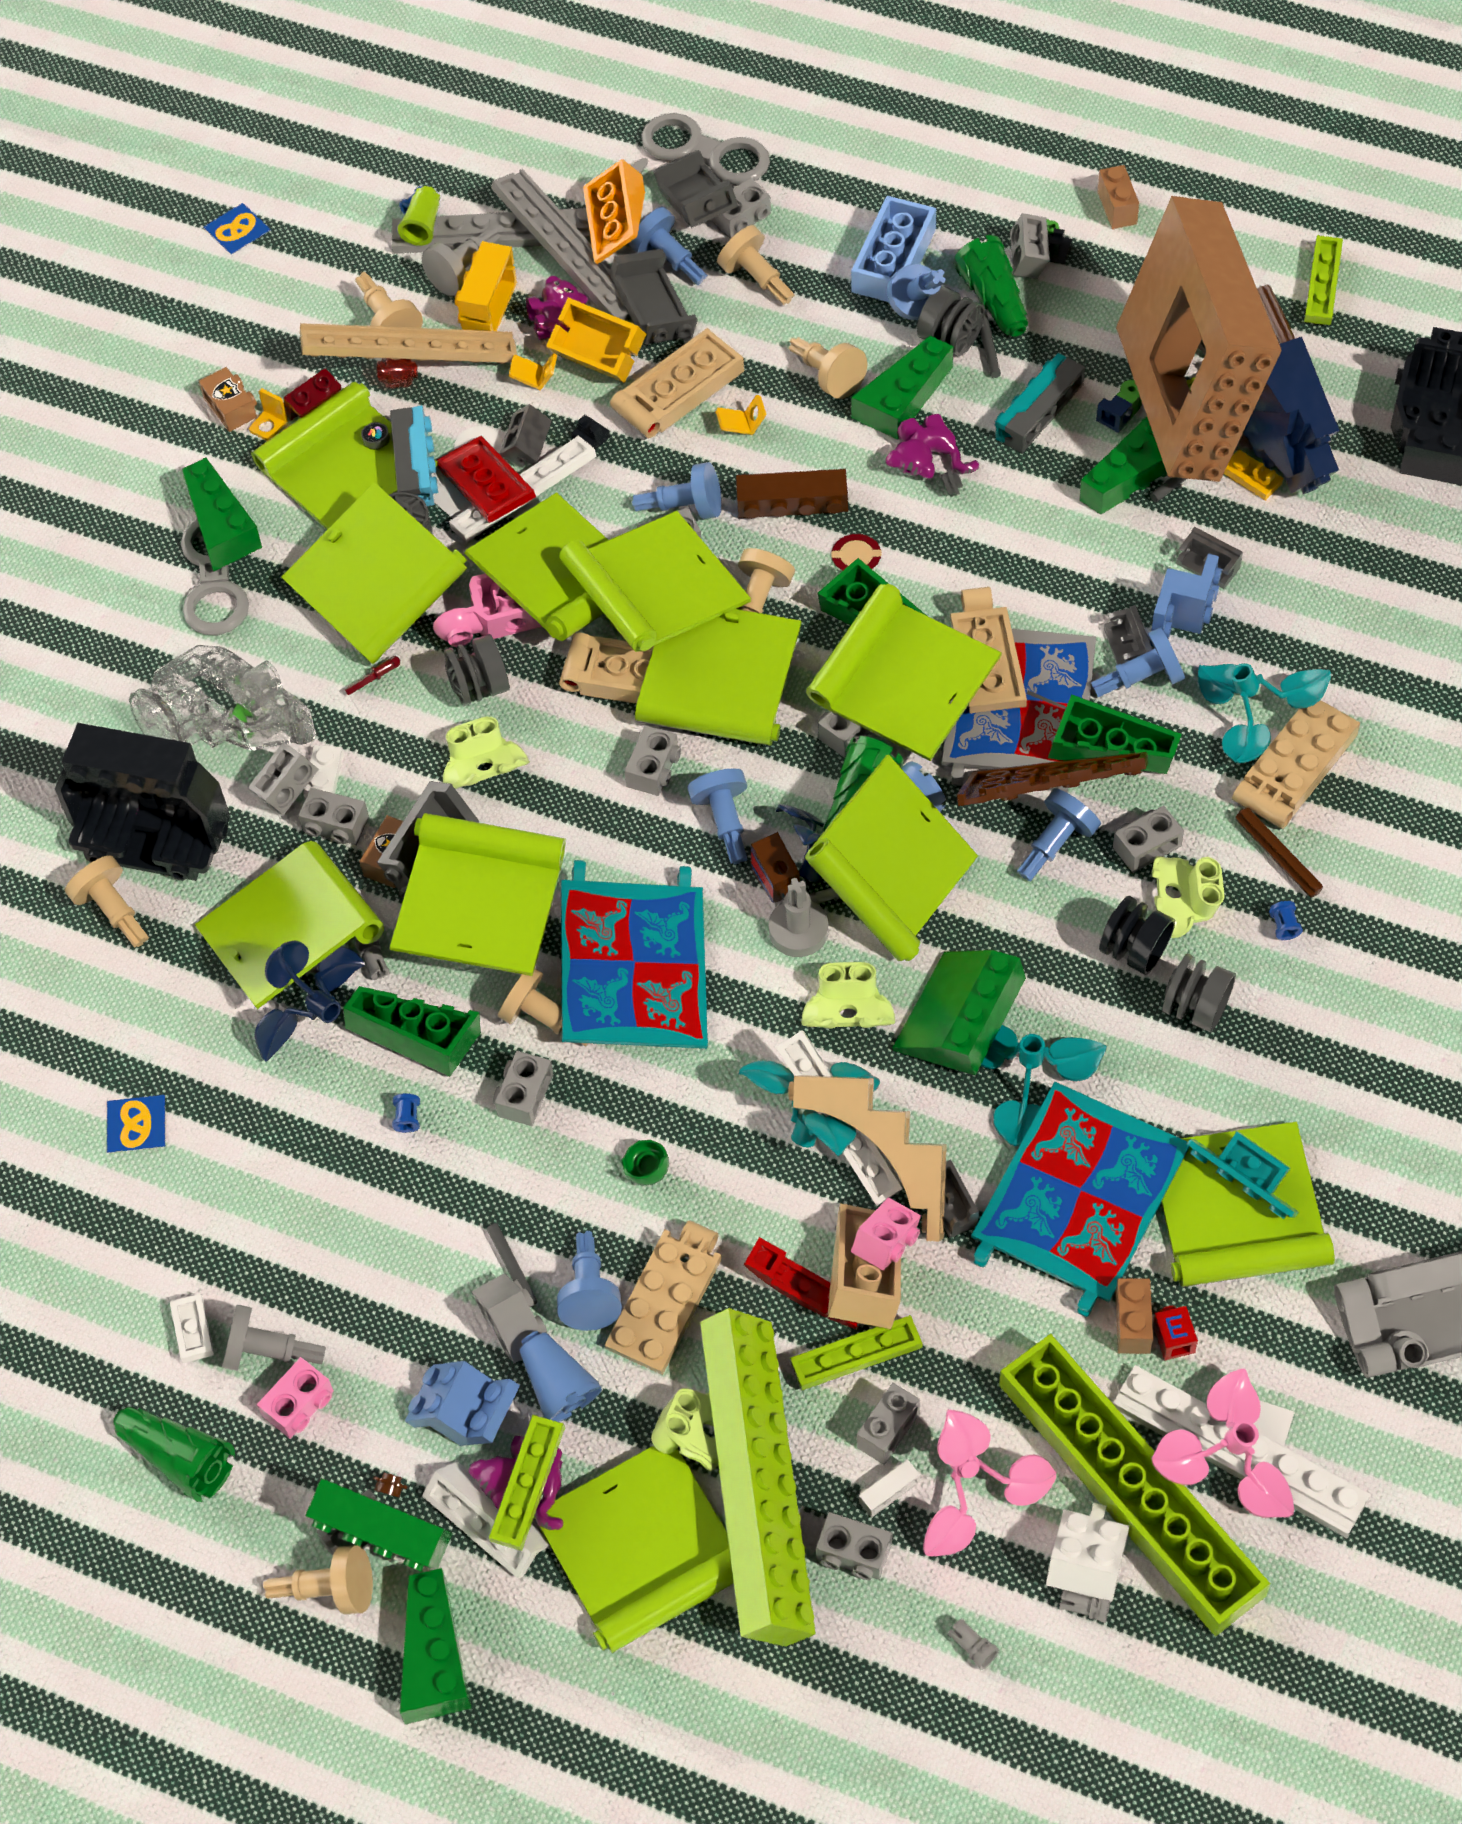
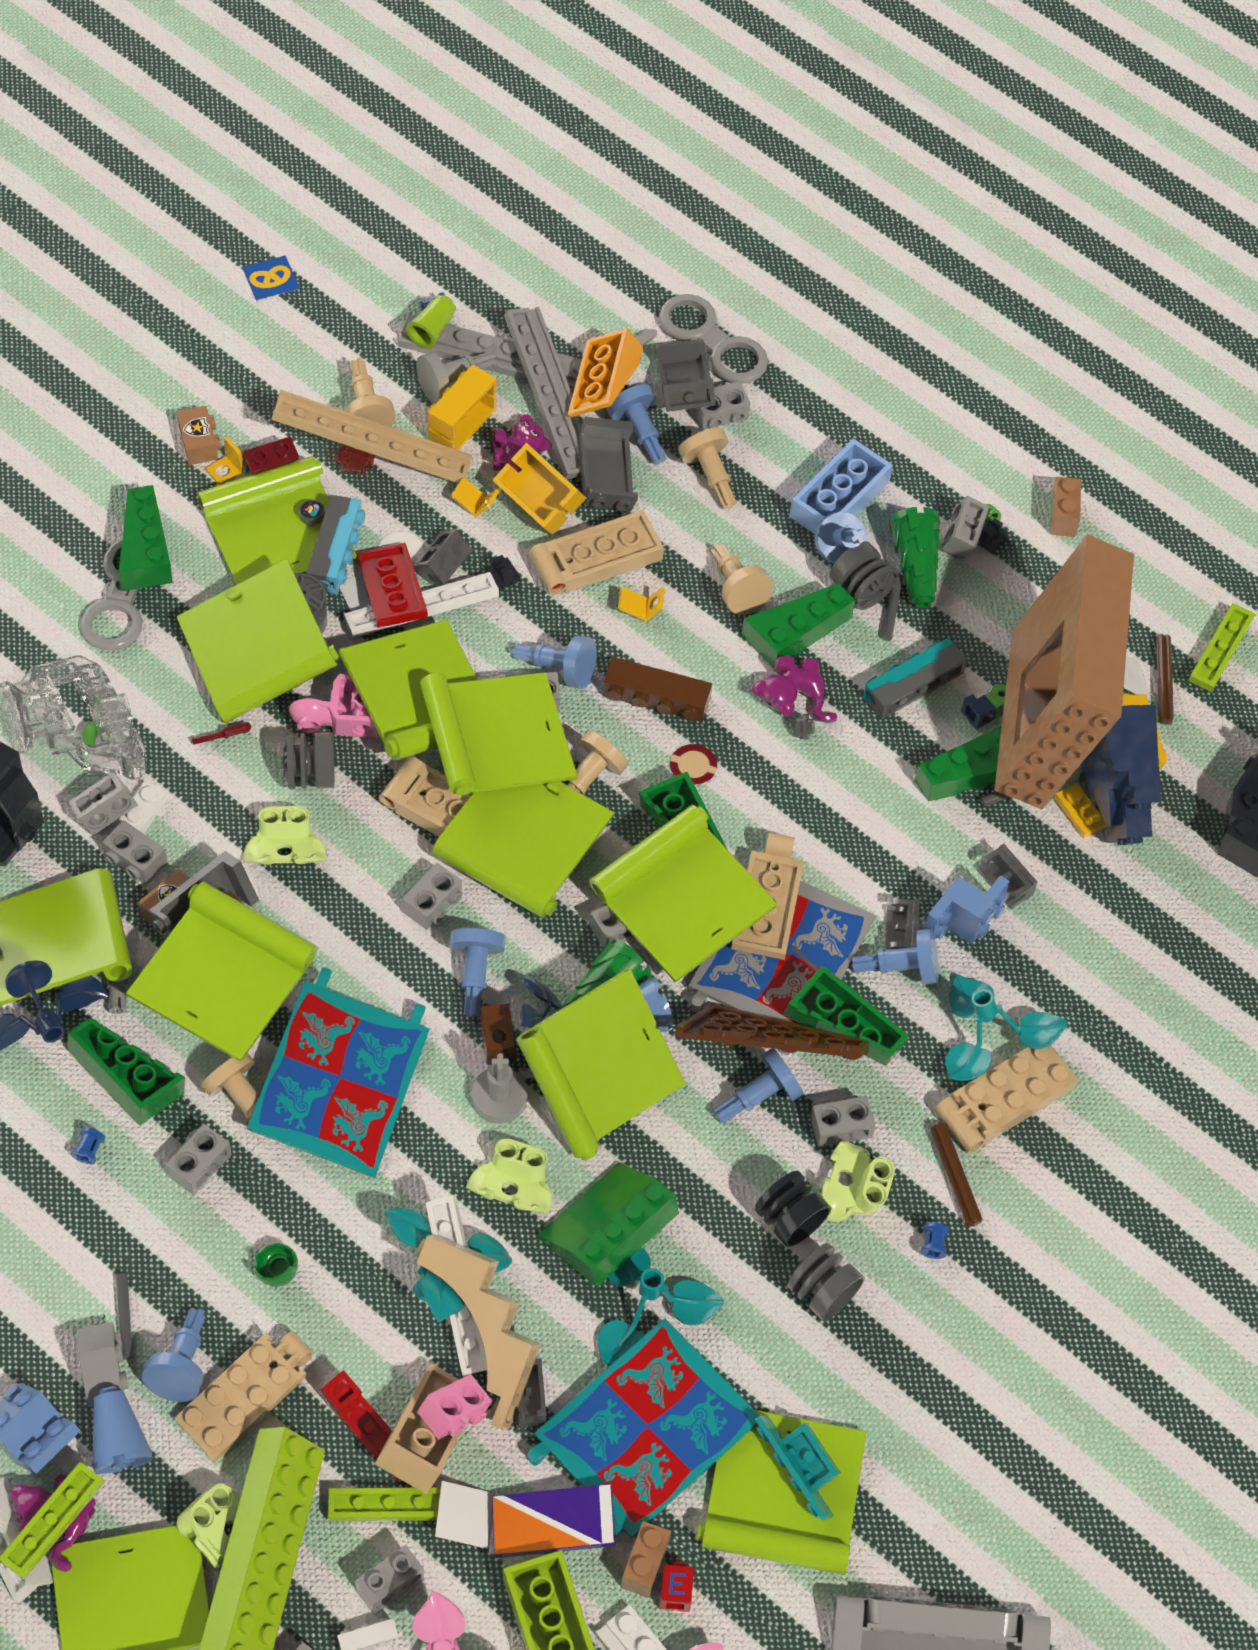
camera: 10 degrees right, 0 degrees up
(935, 1336) = (464, 1514): none -> white sticker
(1027, 1311) = (553, 1521): none -> tile

